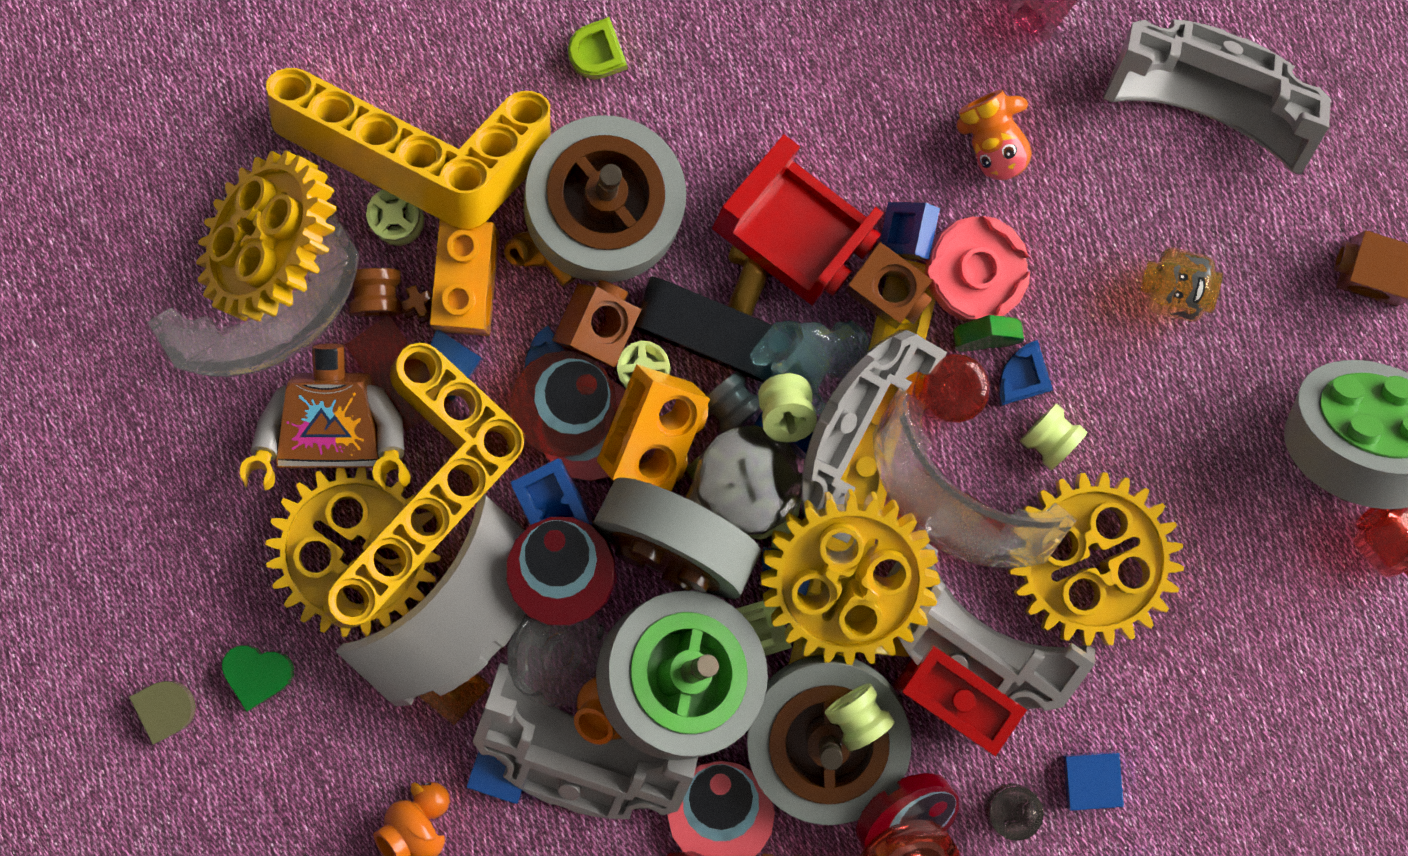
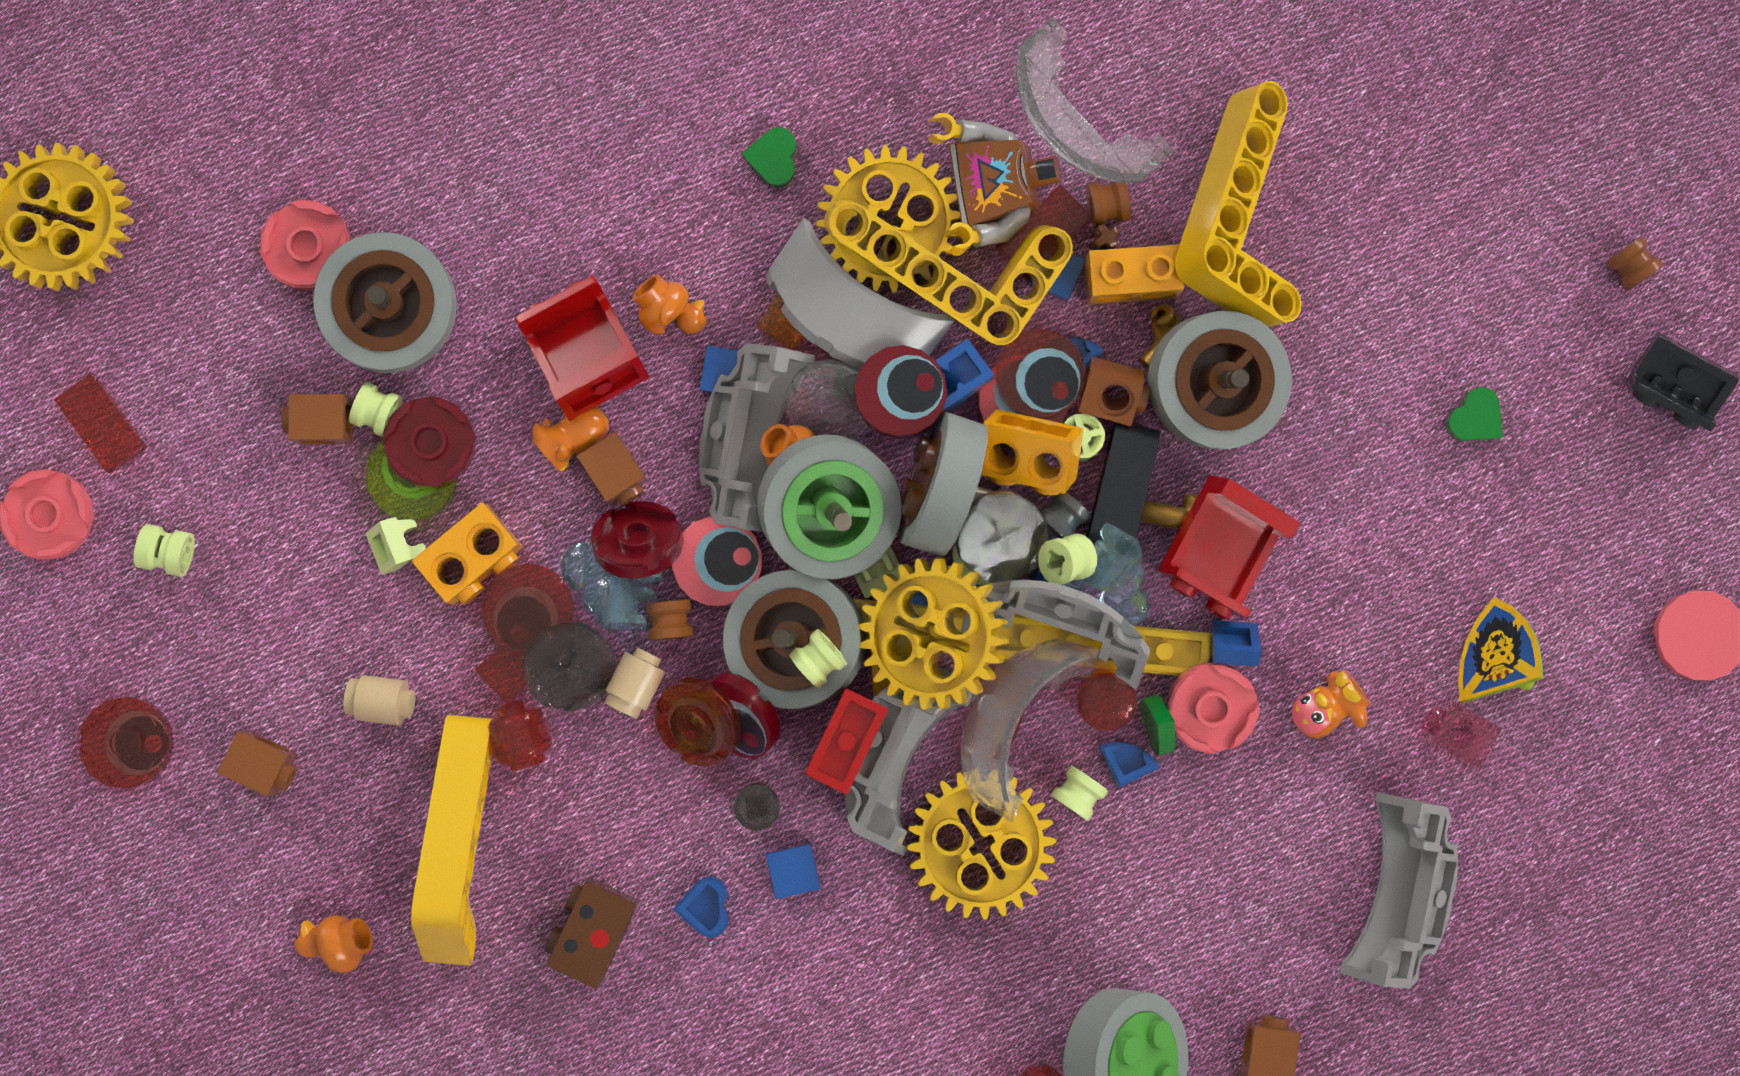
camera: 70 degrees right, 0 degrees up
(164, 709) = (732, 86): olive tile -> none
(266, 236) = (1141, 102): yellow gear -> none
(387, 210) = (1180, 201): yellowish green wheel -> none
(596, 51) = (1345, 355): lime tile -> none
(886, 263) = (1198, 618): dark orange brick -> none
(1182, 284) = (1227, 883): clear yellow head -> none

